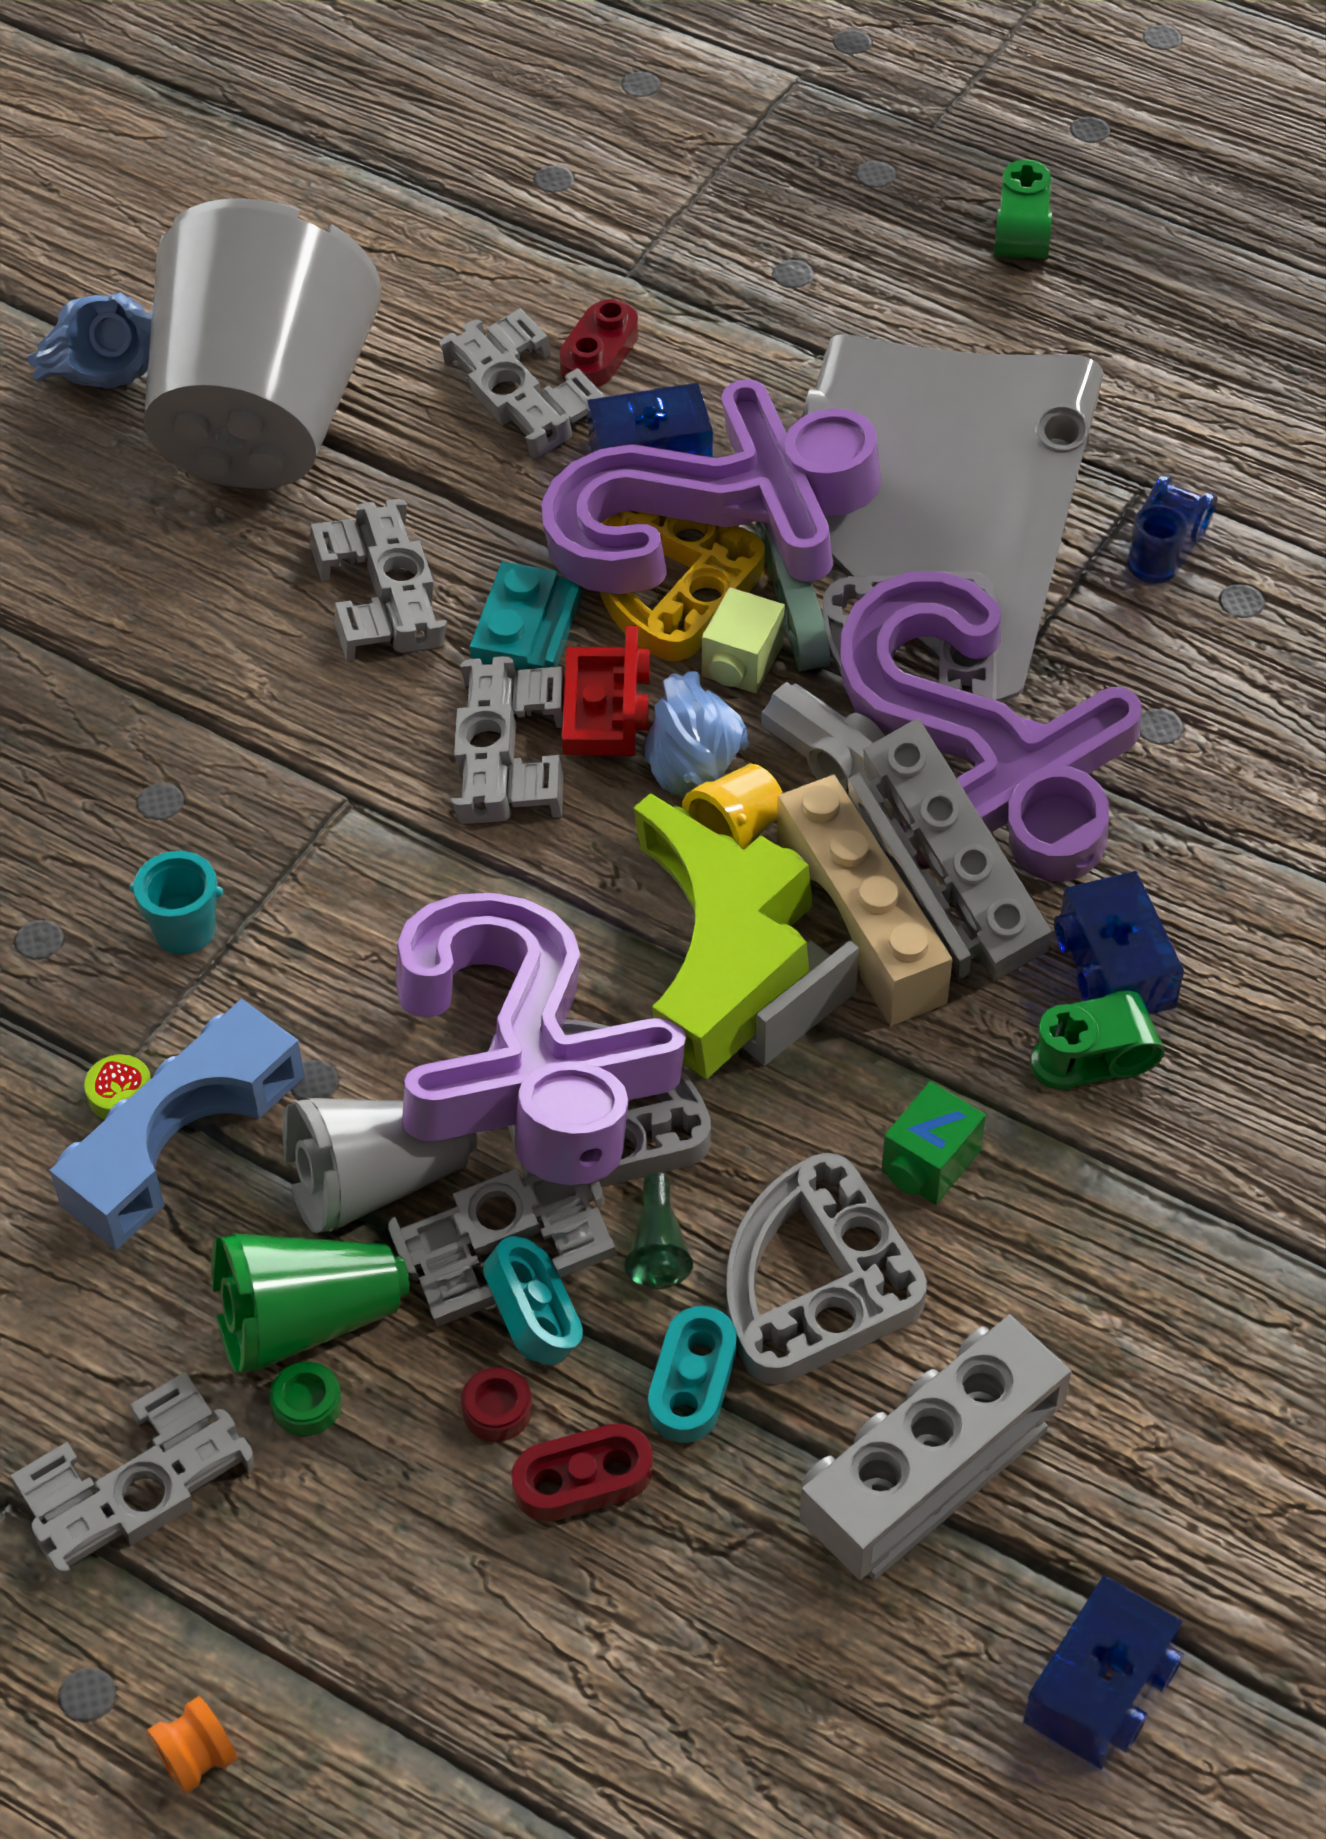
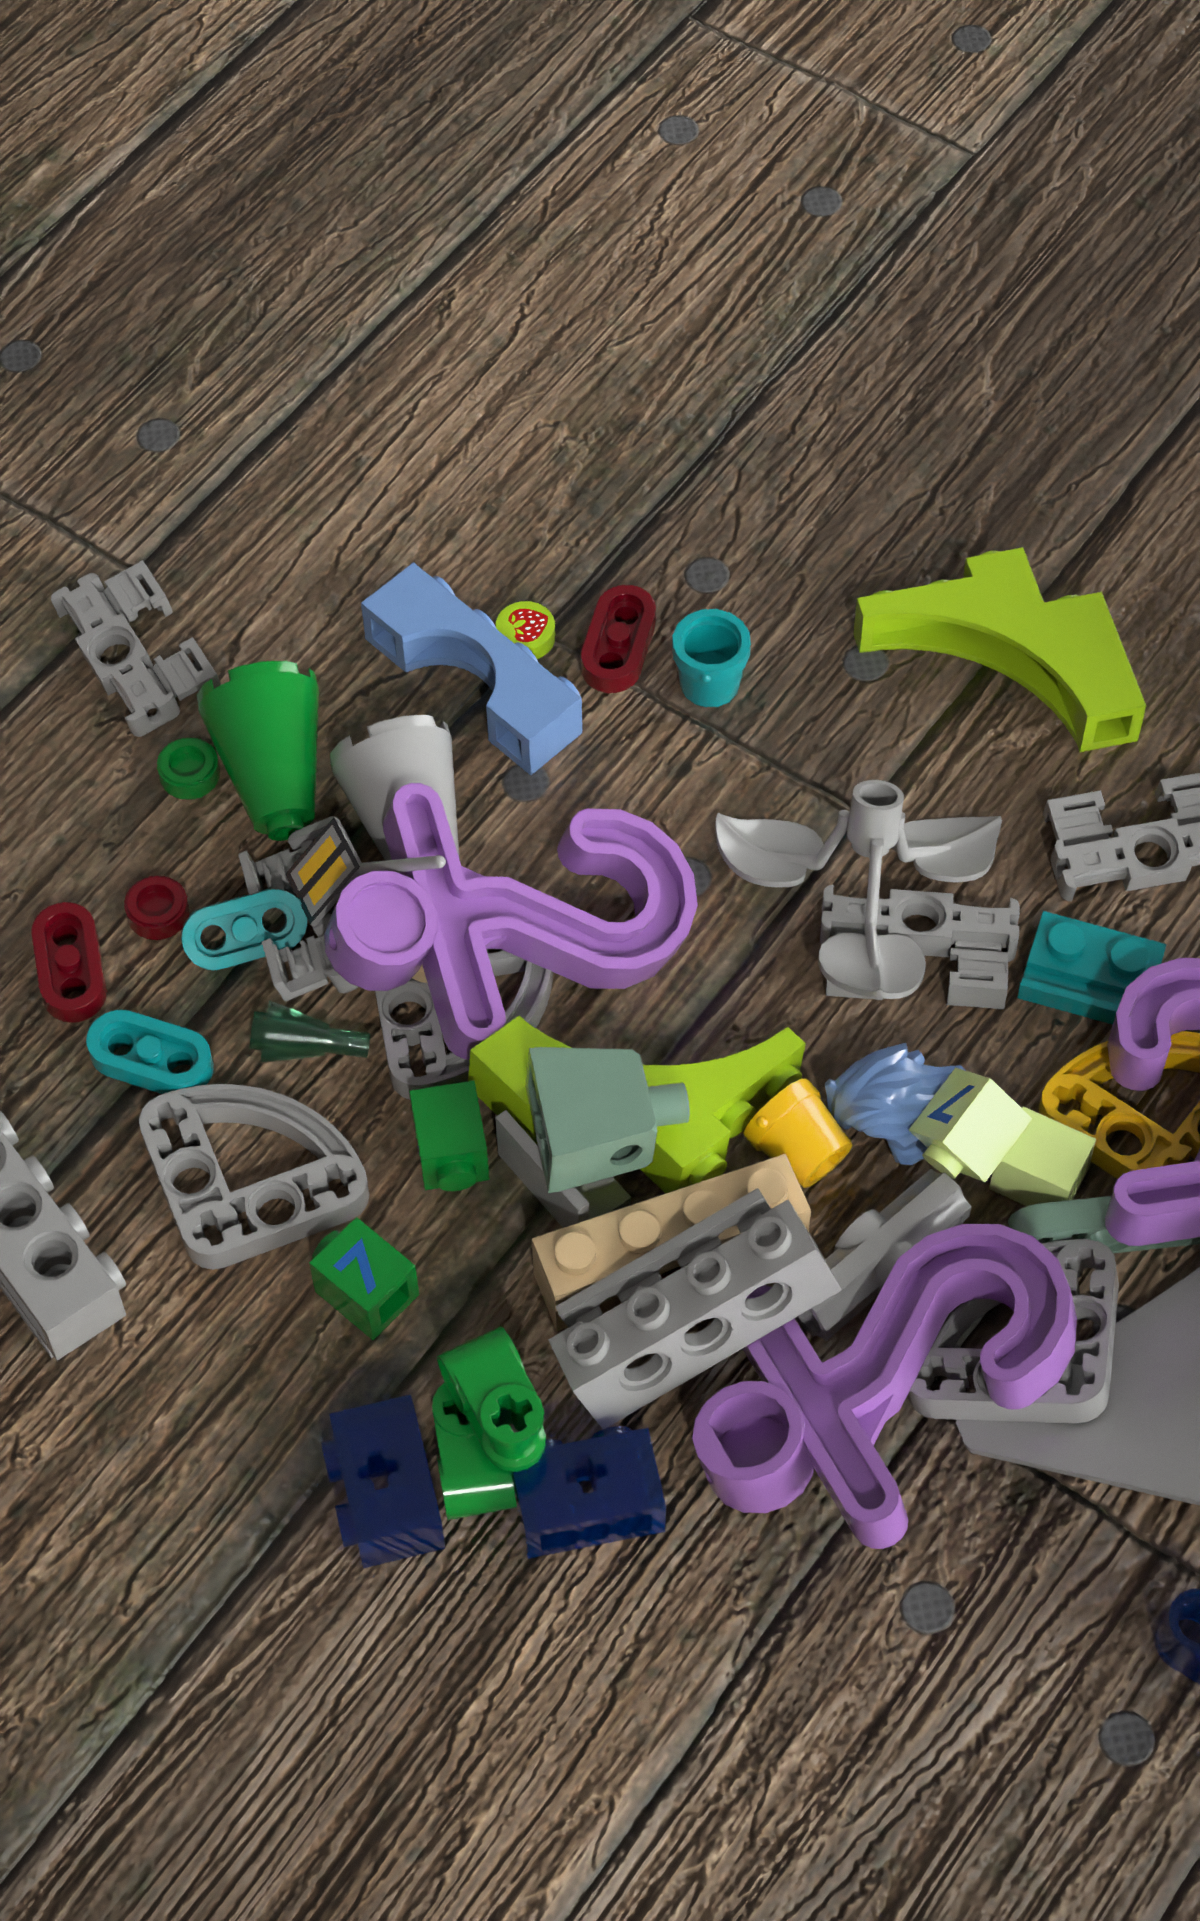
camera: 95 degrees right, 5 degrees up
(141, 994) = (616, 643): none -> dark red plate
(157, 644) = (998, 618): none -> lime arch
(414, 723) = (942, 849): none -> light grey plant
(479, 1200) = (333, 863): none -> piece
(603, 698) = (968, 1027): red bracket -> none
(732, 667) = (969, 1126): none -> yellowish green brick
(767, 1087) = (450, 1136): none -> green brick
(782, 913) = (596, 1113): none -> sand green torso
(1072, 980) = (493, 1392): none -> green piece
(1140, 1103) = (392, 1520): none -> clear blue brick

